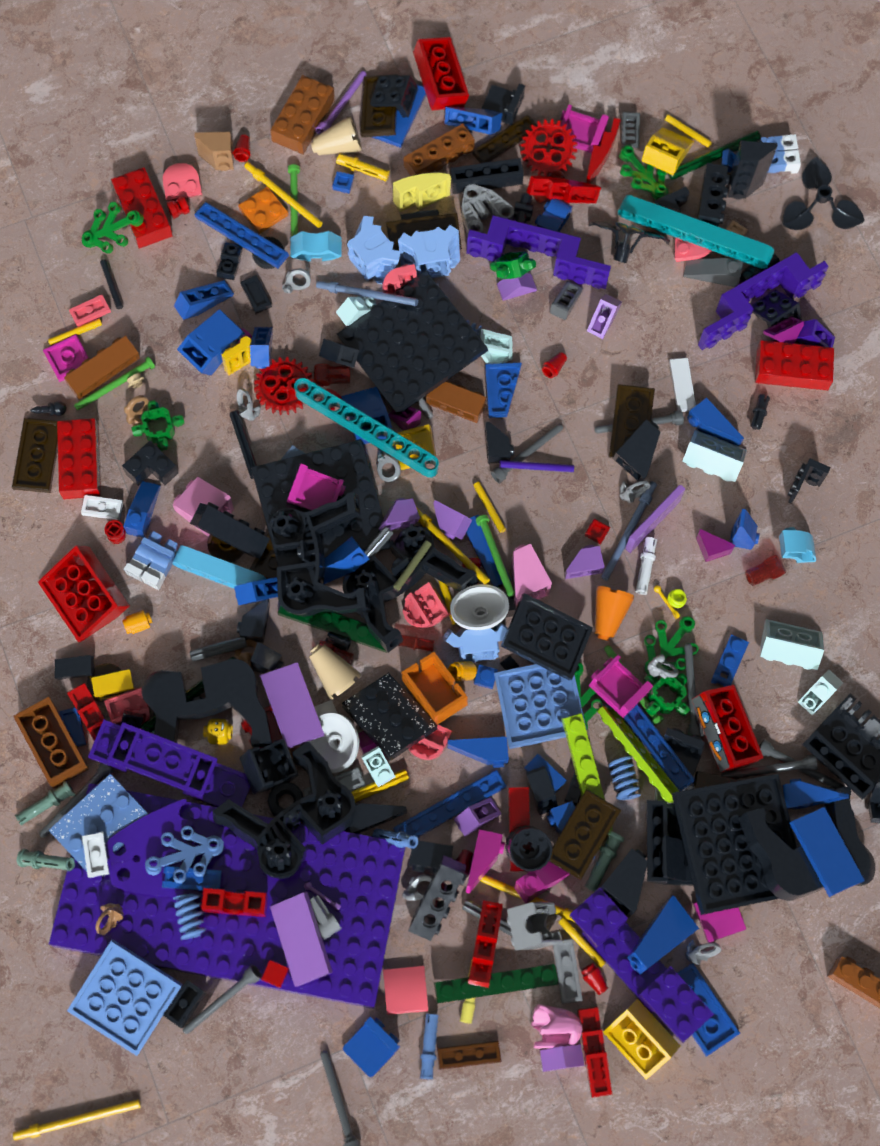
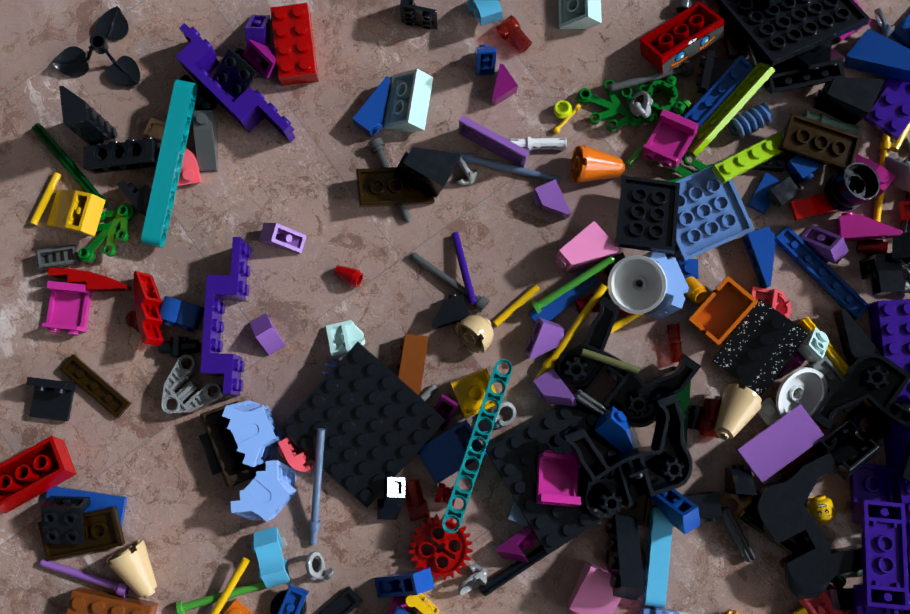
camera: 100 degrees left, 10 degrees up
(266, 448) = (512, 547): none -> magenta slope
(343, 182) = (185, 548): blue plate -> none
(354, 308) = (336, 494): light aqua slope -> none
(366, 168) = (160, 540): yellow pin -> none
(407, 840) = (880, 306): medium blue pin -> none
(421, 190) = (180, 460): light yellow slope -> none
(425, 607) = (638, 342): coral slope -> none
(440, 151) = (127, 452): dark orange brick -> none
(472, 461) = (476, 332): none -> tan cylinder
(474, 119) = (78, 421): blue slope -> none
(487, 175) = (146, 393): black brick -> none
(500, 387) = (386, 323): blue wing -> none
(512, 265) = (249, 341): green piece -> none
(551, 131) = (79, 336): red gear -> none
(562, 310) = (283, 283): dark grey slope -> none
(597, 531) = (513, 197): red tile -> none
(623, 249) = (192, 224): black plant -> none
(682, 384) = (339, 147): white tile -> none
(728, 159) = (74, 148): blue plate -> none
(730, 661) = (610, 51): blue plate -> none
(759, 412) = (351, 69): black axle -> none
(786, 155) = (49, 101): hips -> none

